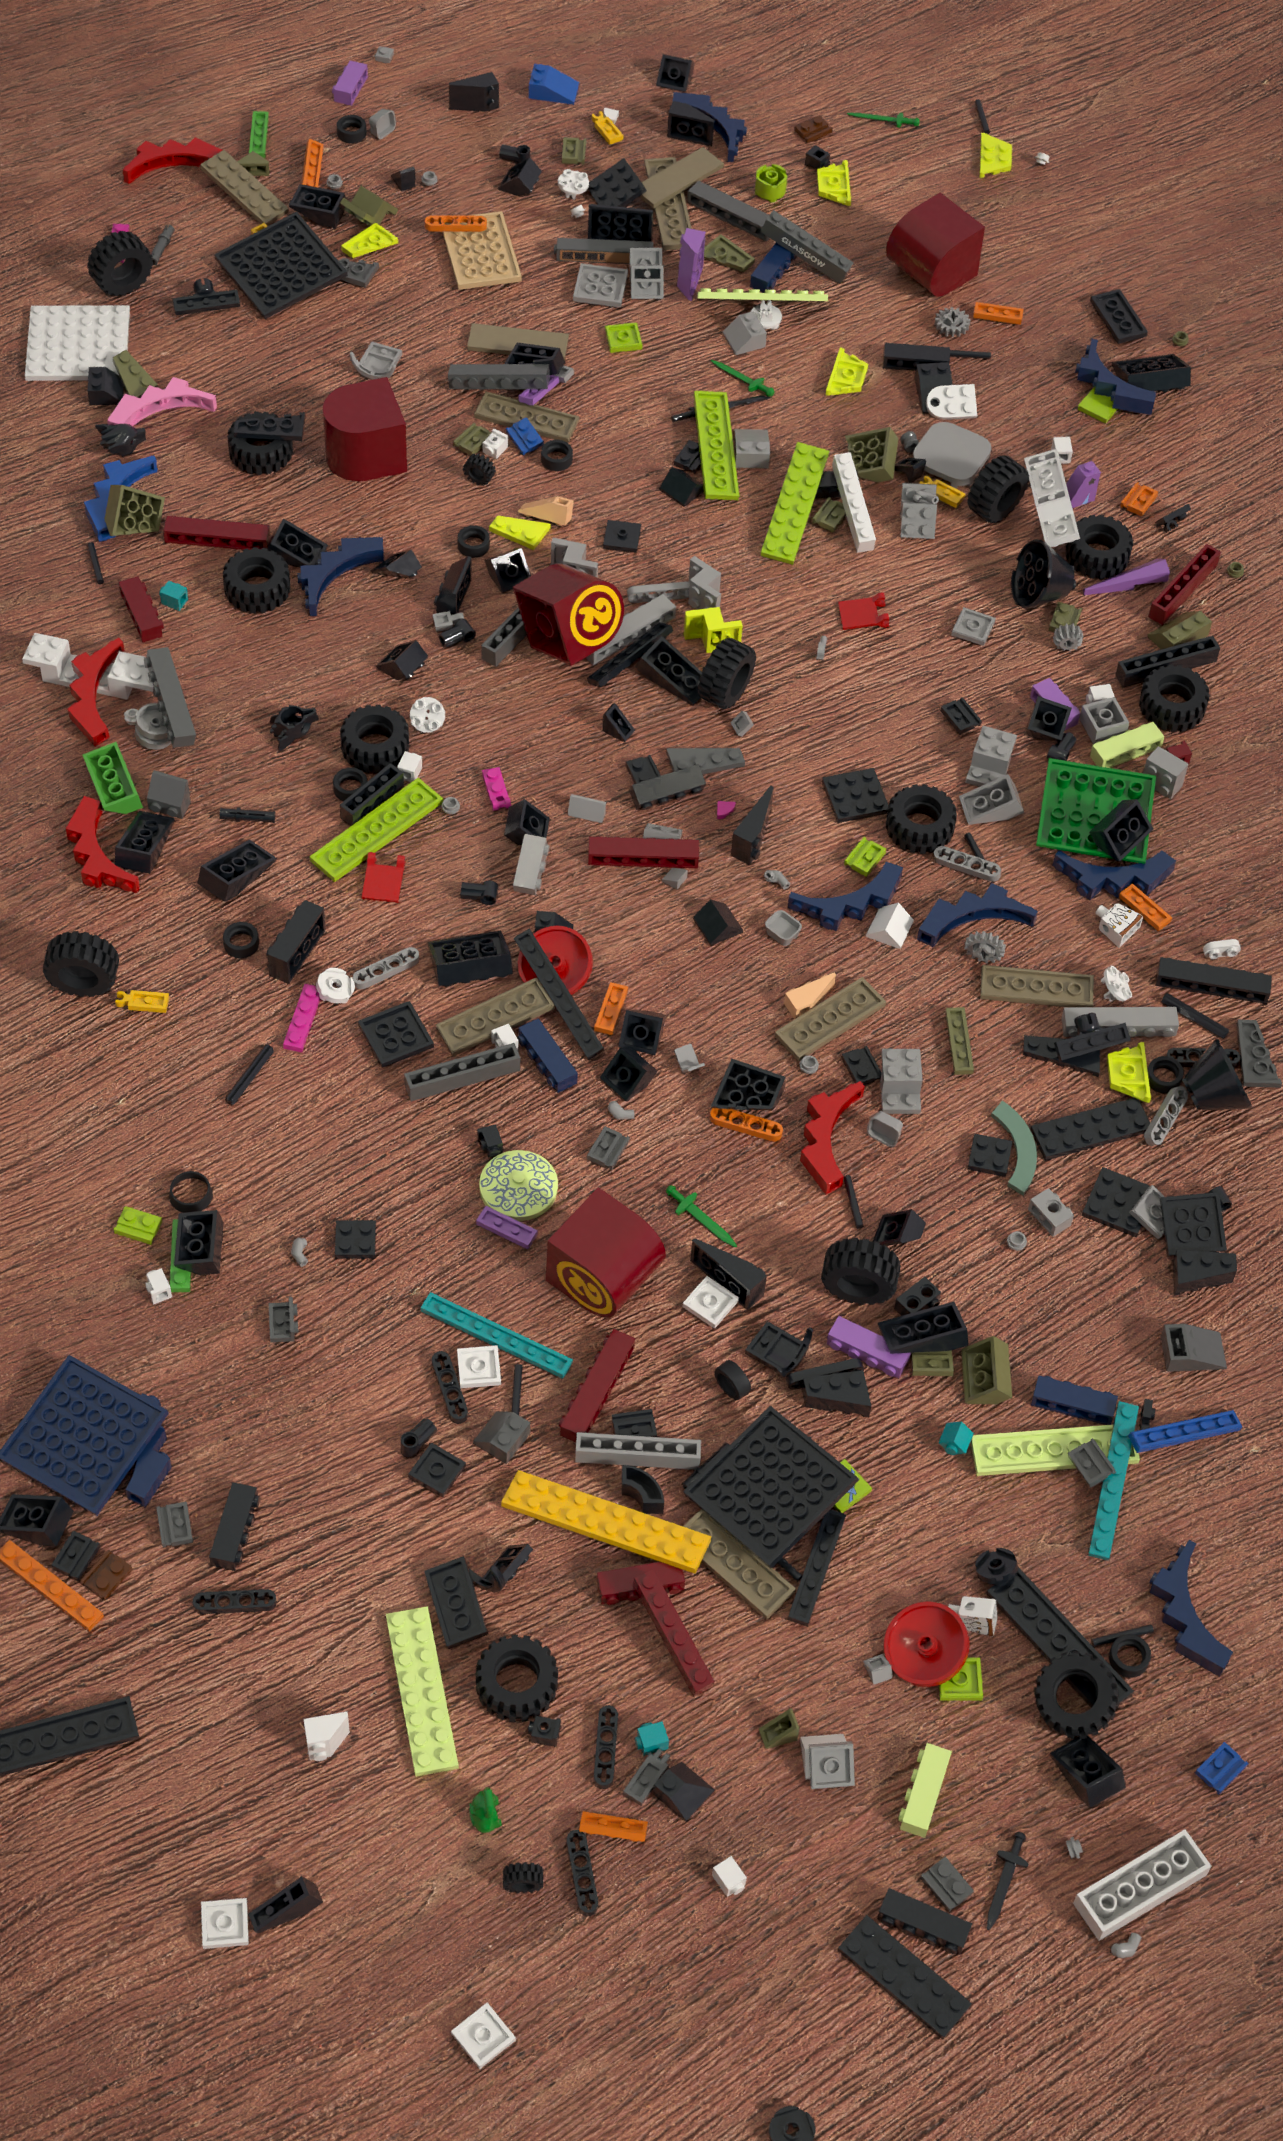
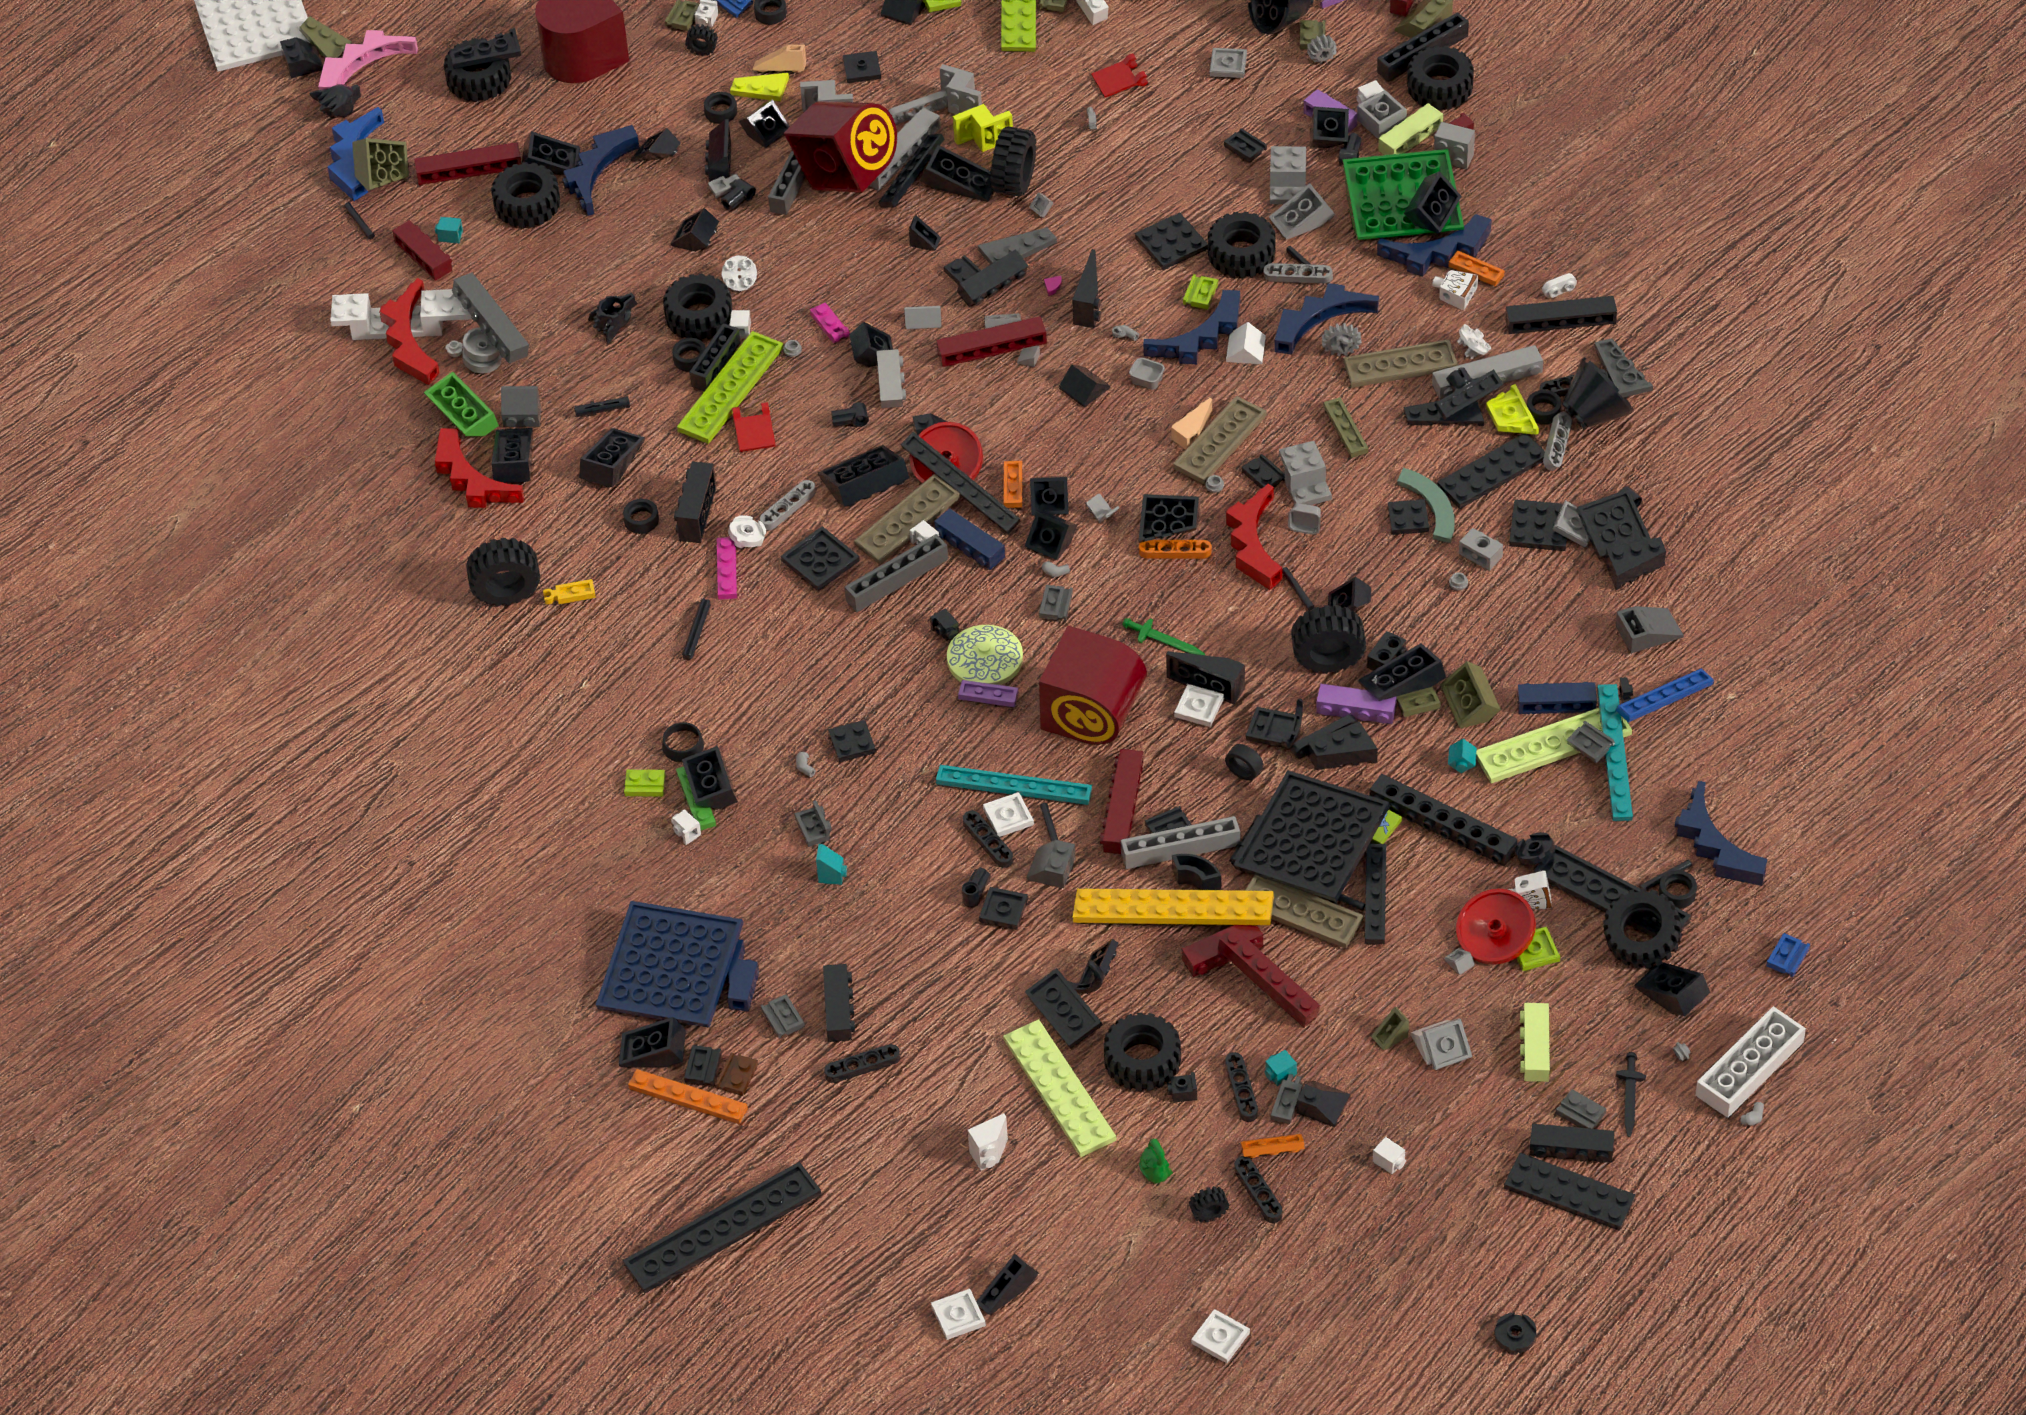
camera: 10 degrees left, 5 degrees down
(280, 1372) = (830, 866): none -> teal slope
(954, 1537) = (1445, 820): none -> black brick
(1195, 1015) = (1555, 350): black axle -> none

